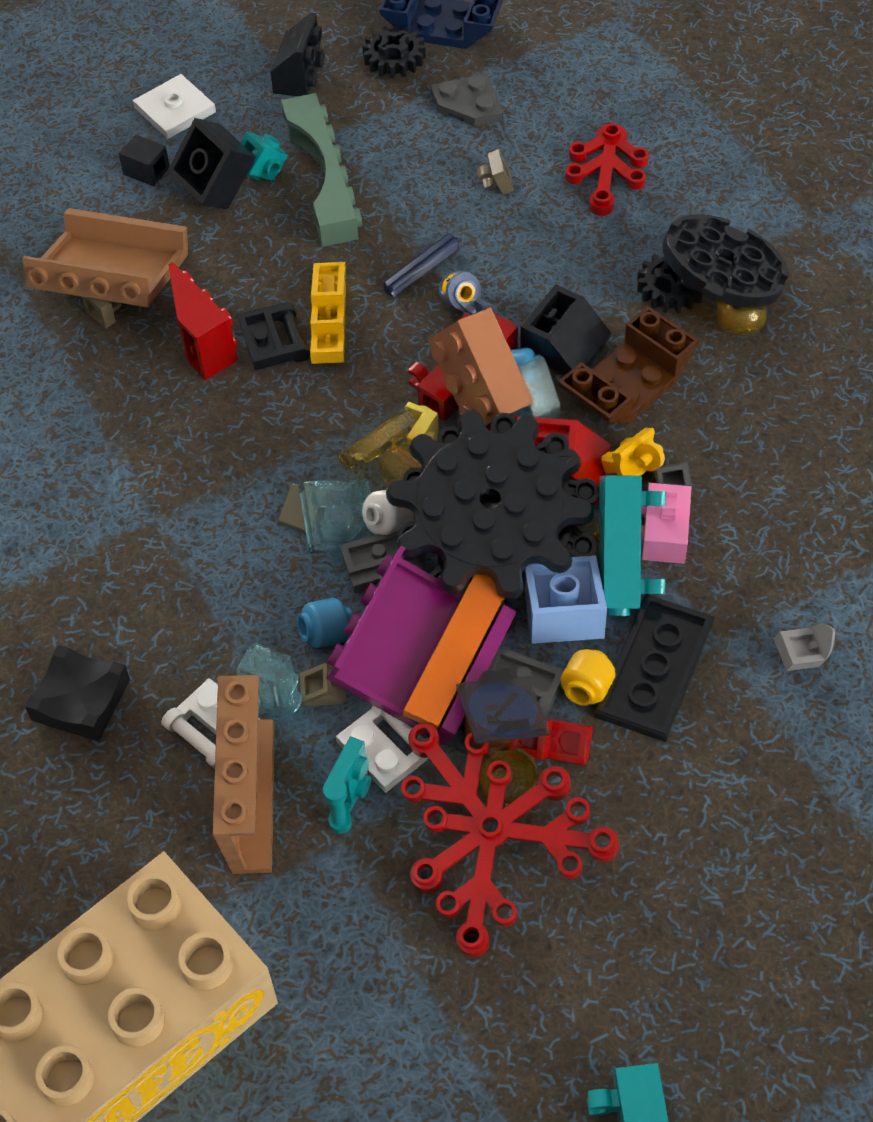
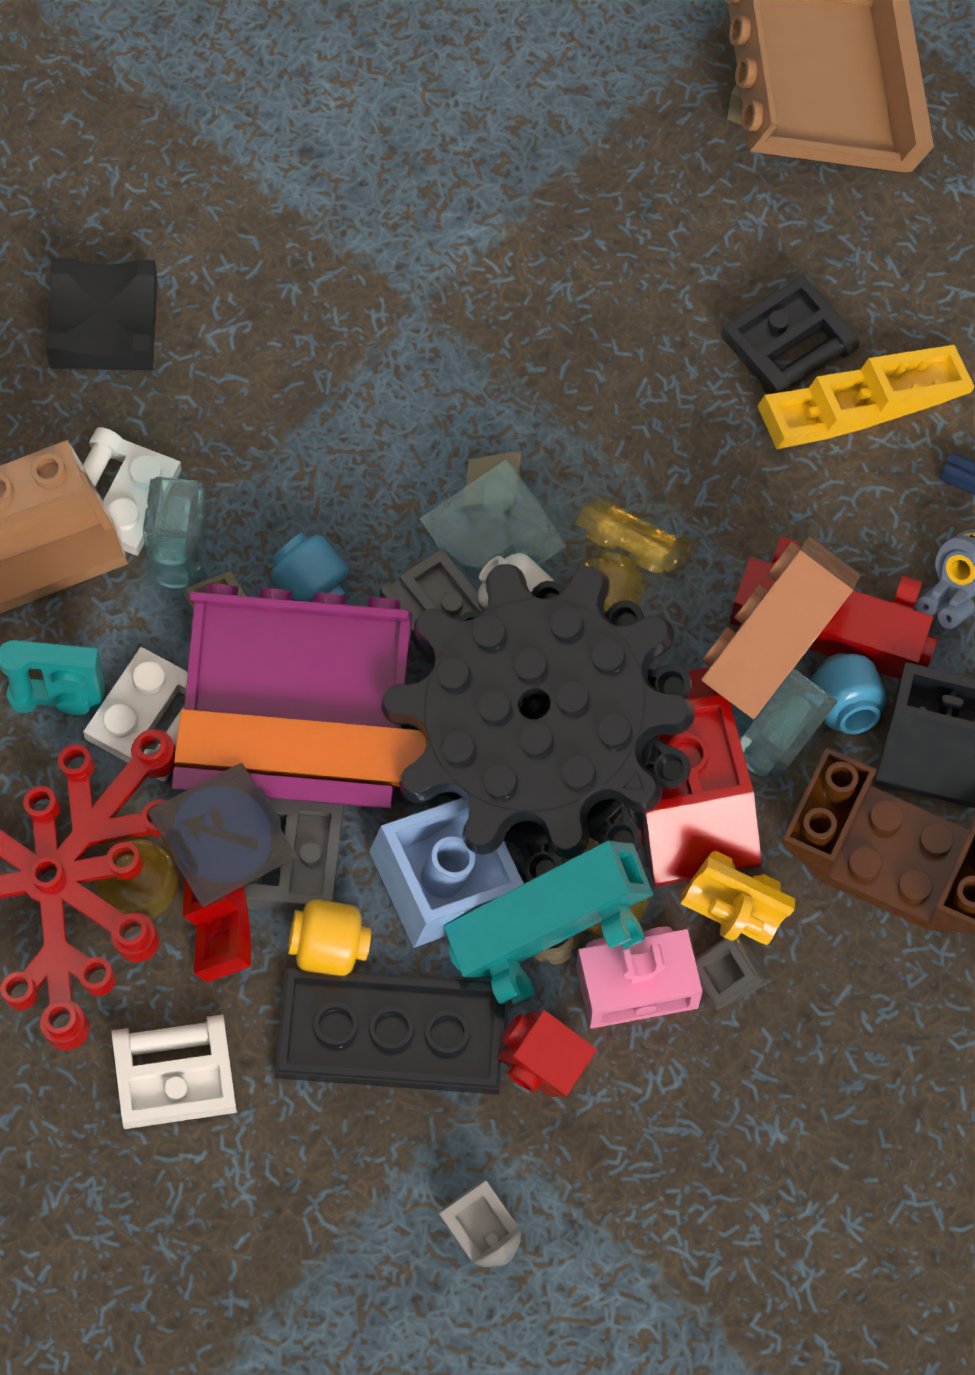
camera: 65 degrees right, 10 degrees up
(202, 326) = (750, 226): red slope -> none
(425, 422) = (684, 597): light yellow bracket -> none
(661, 795) = (176, 1087): none -> white plate
(704, 580) = (544, 1053): none -> red brick

